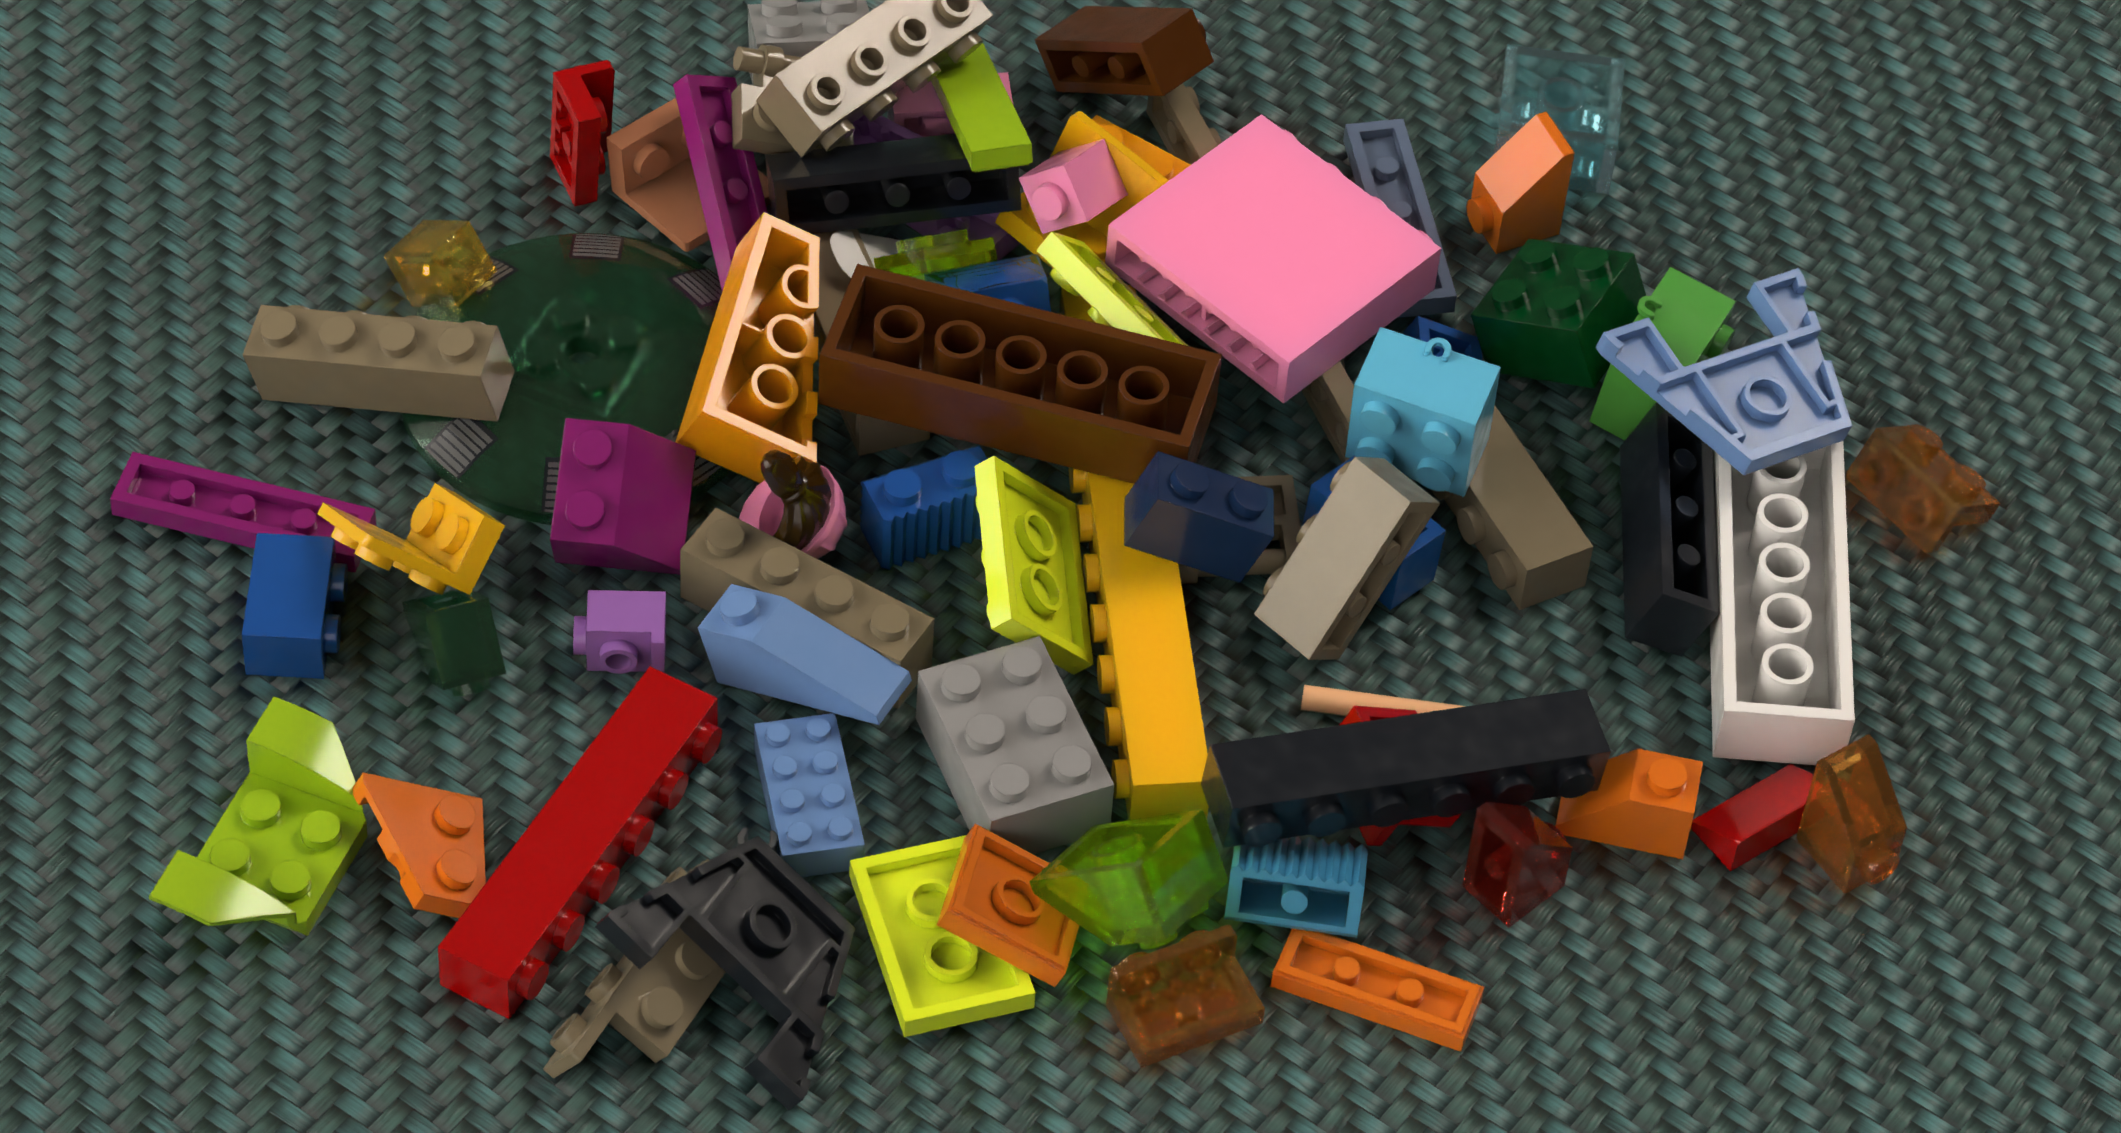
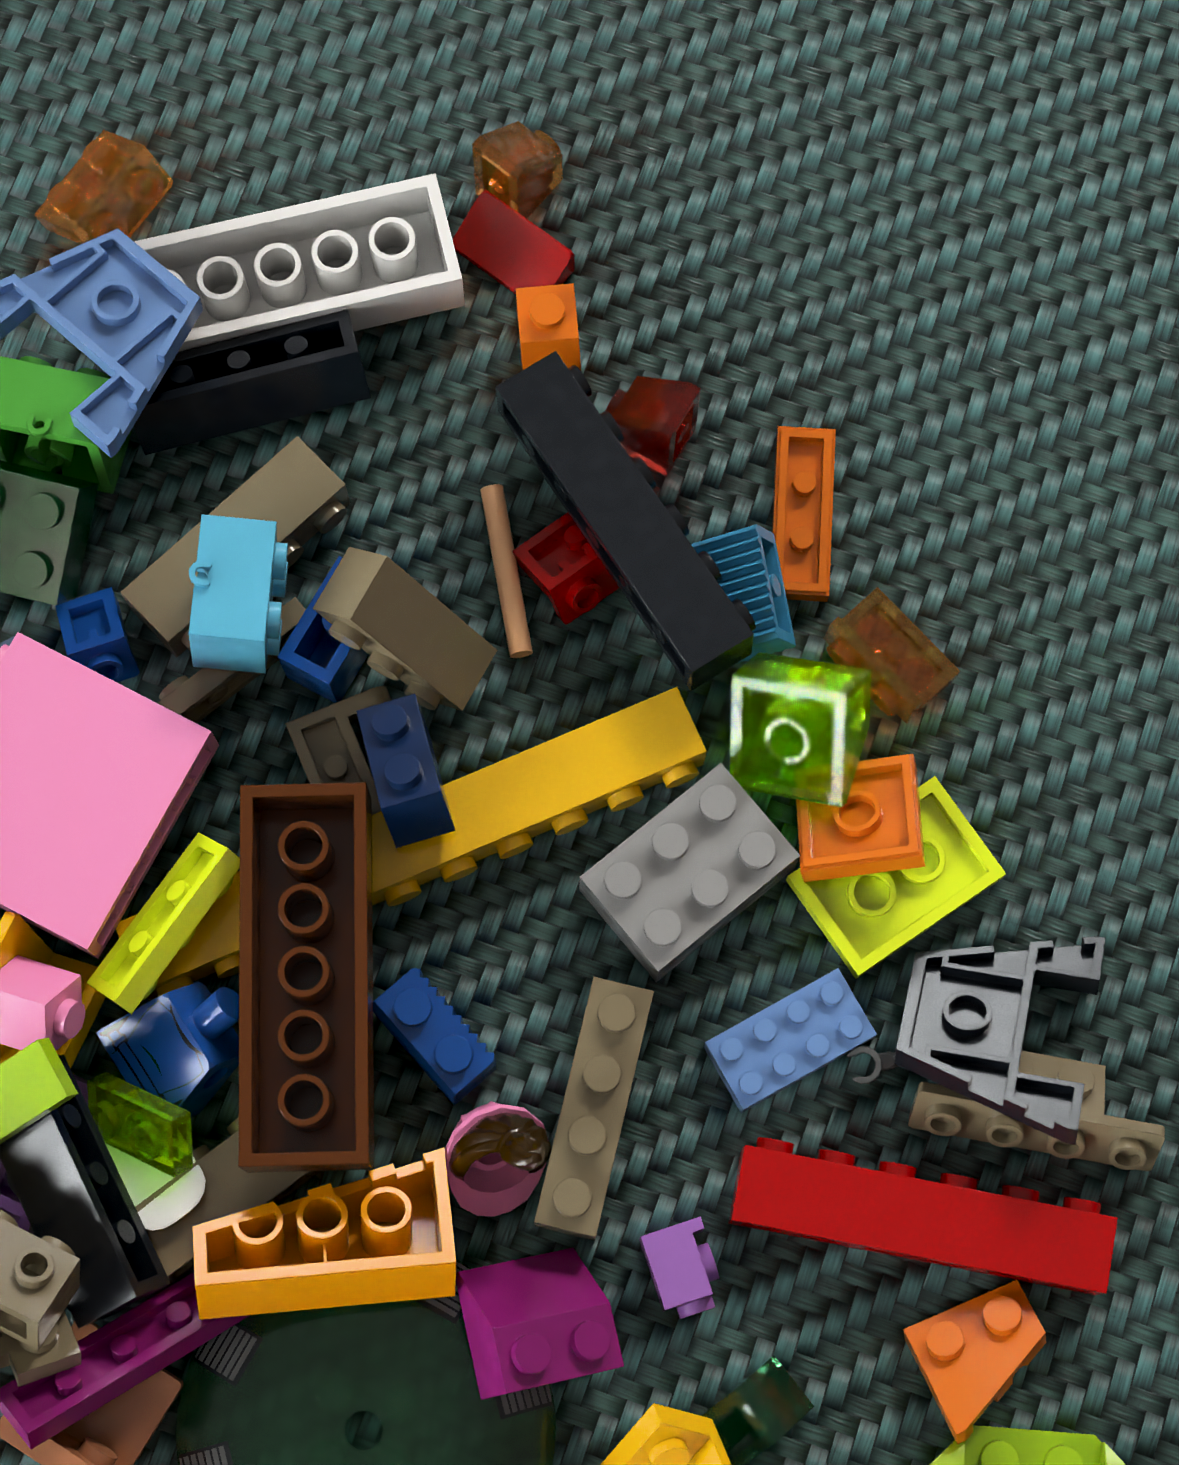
camera: 105 degrees left, 25 degrees up
(794, 656) = (667, 1084): medium blue slope -> none
(1033, 563) = (491, 913): neon yellow plate -> none

